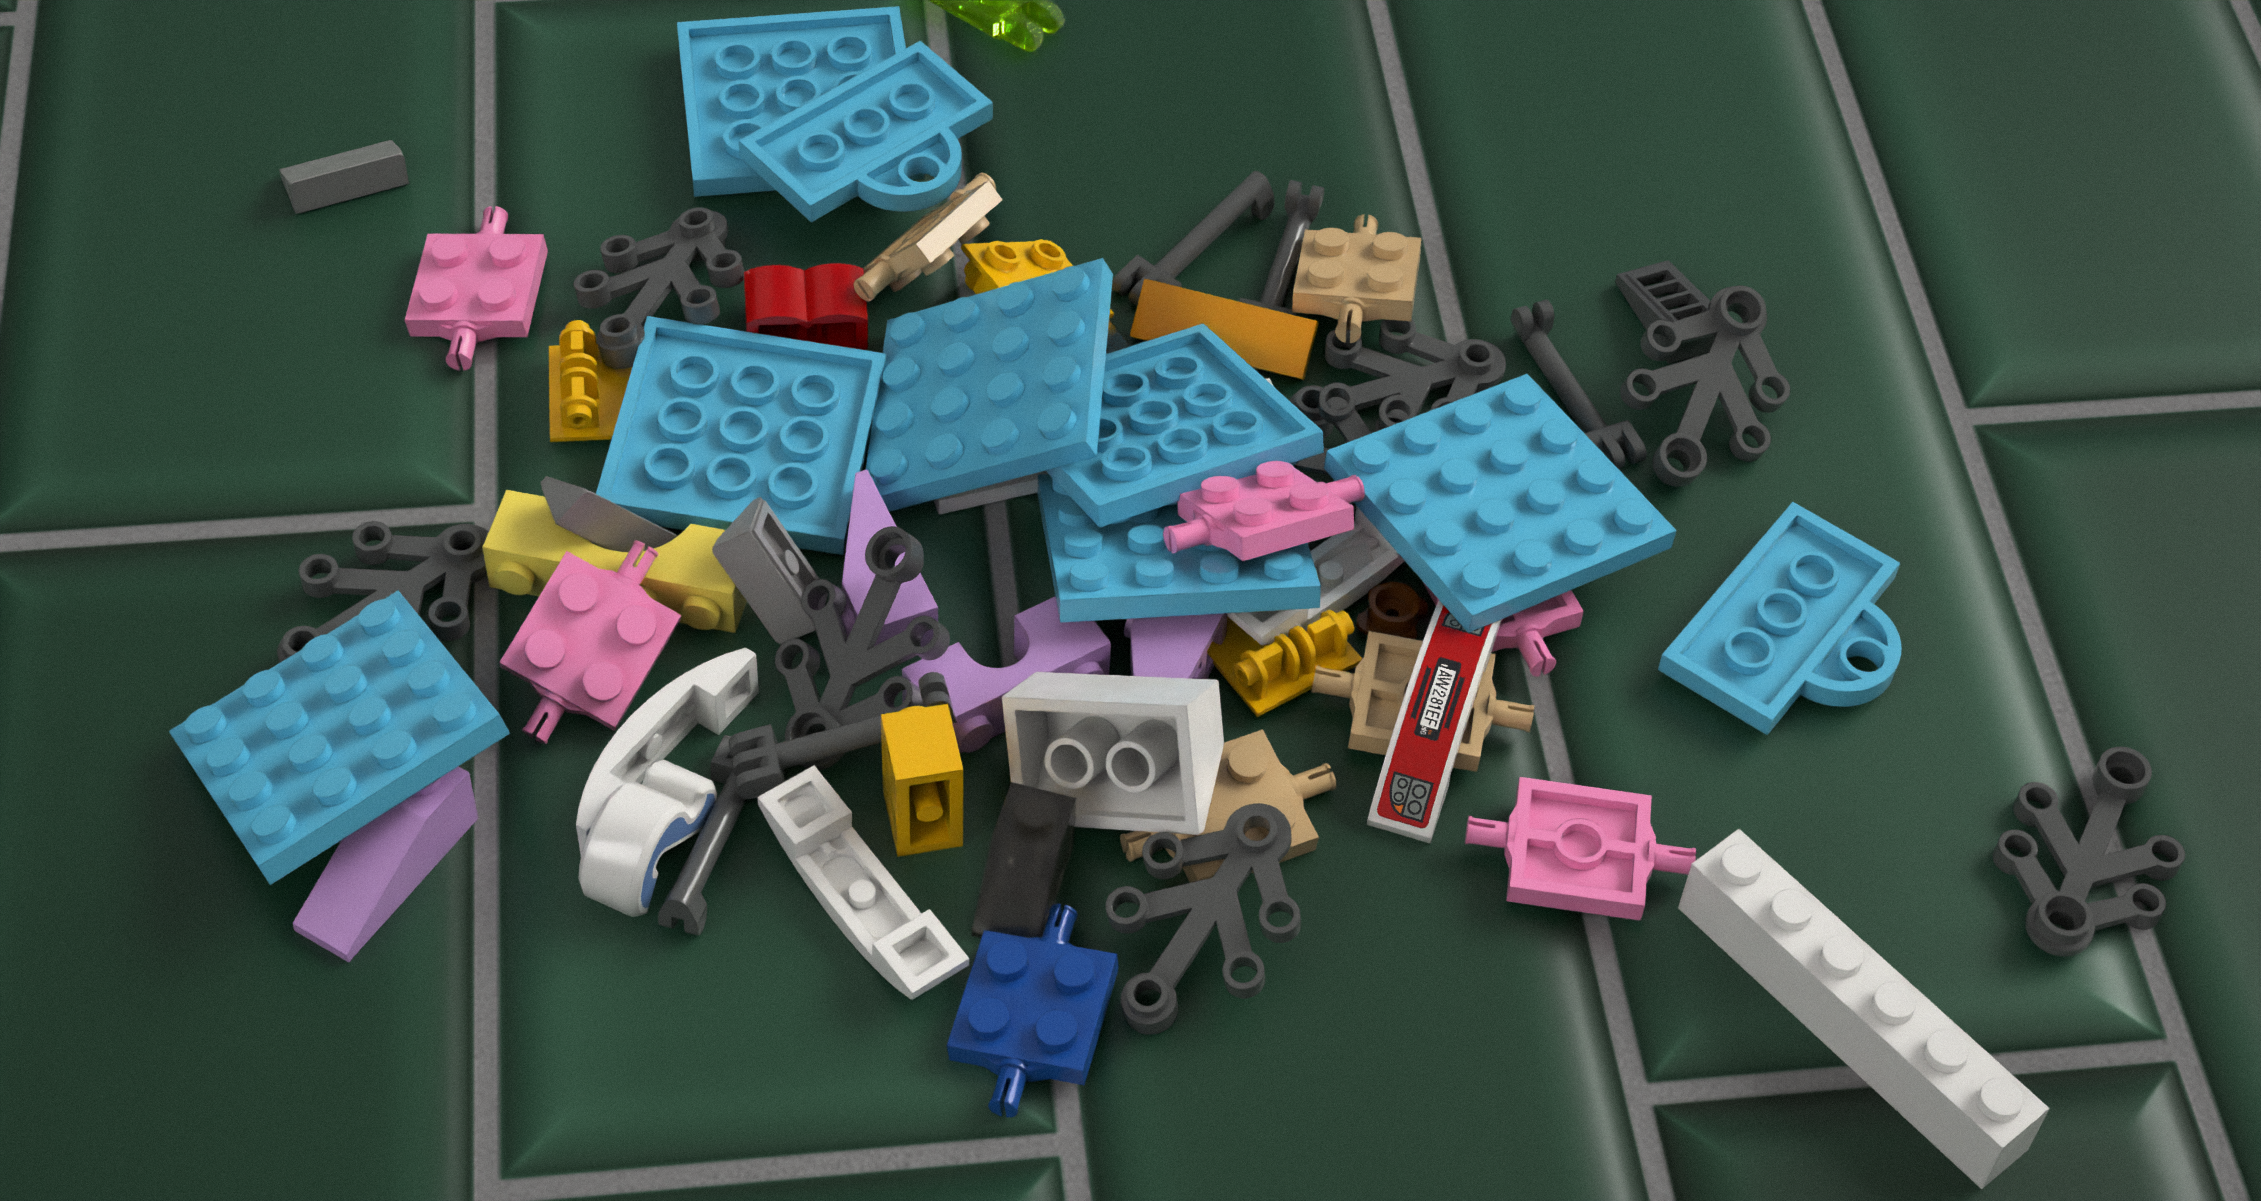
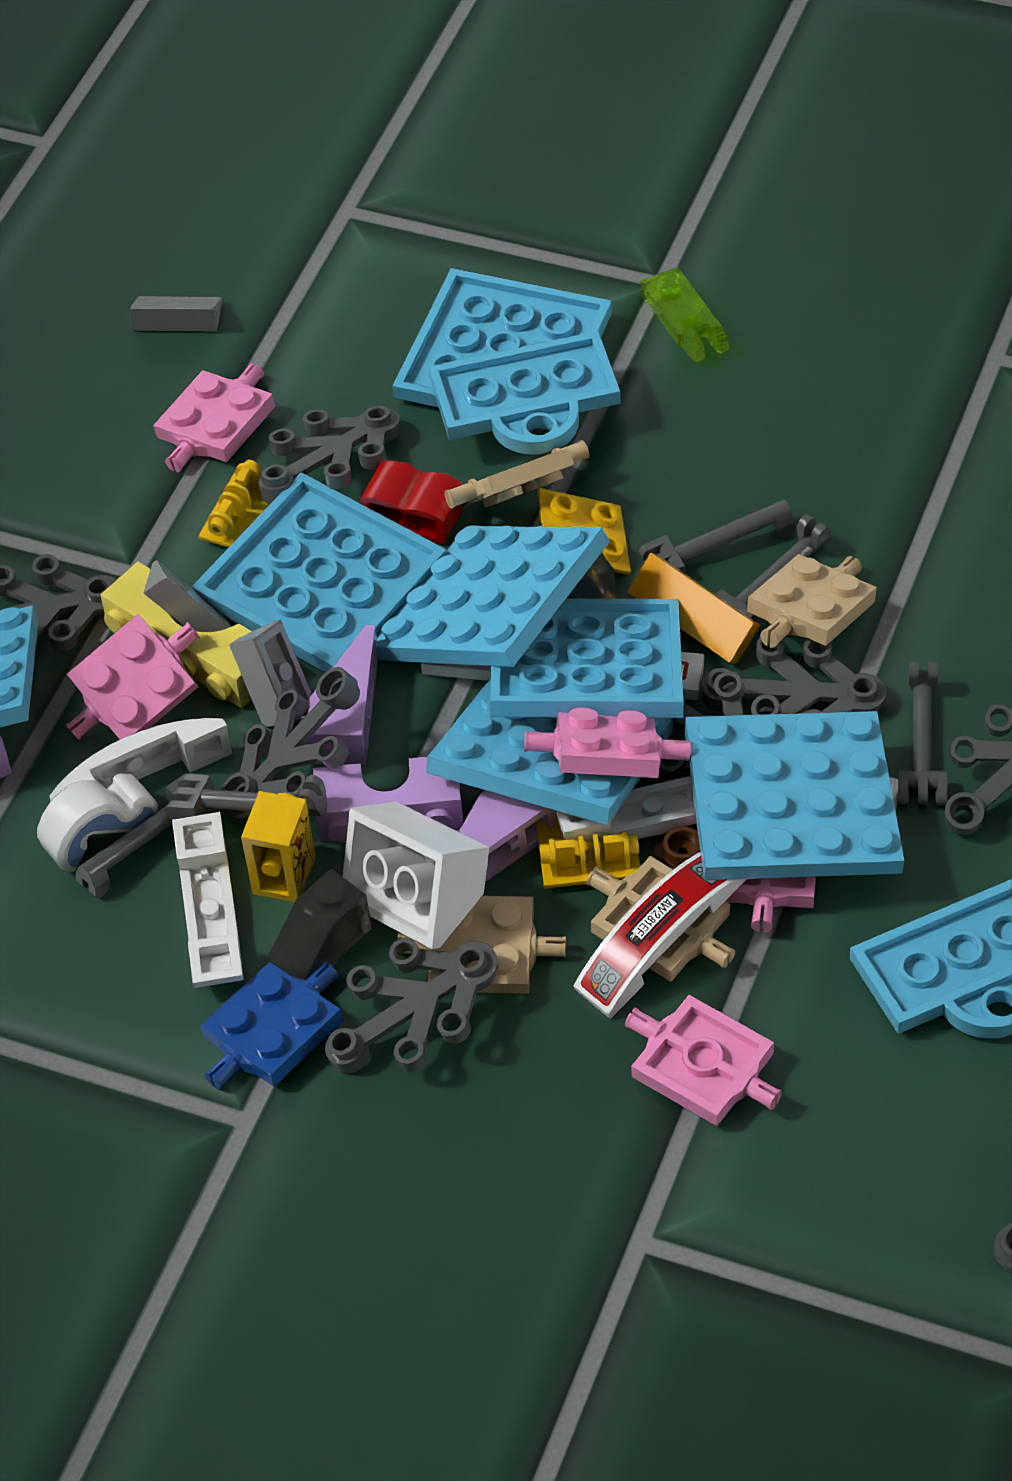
camera: 35 degrees right, 0 degrees up
(1862, 1008) = (823, 1245): white brick -> none

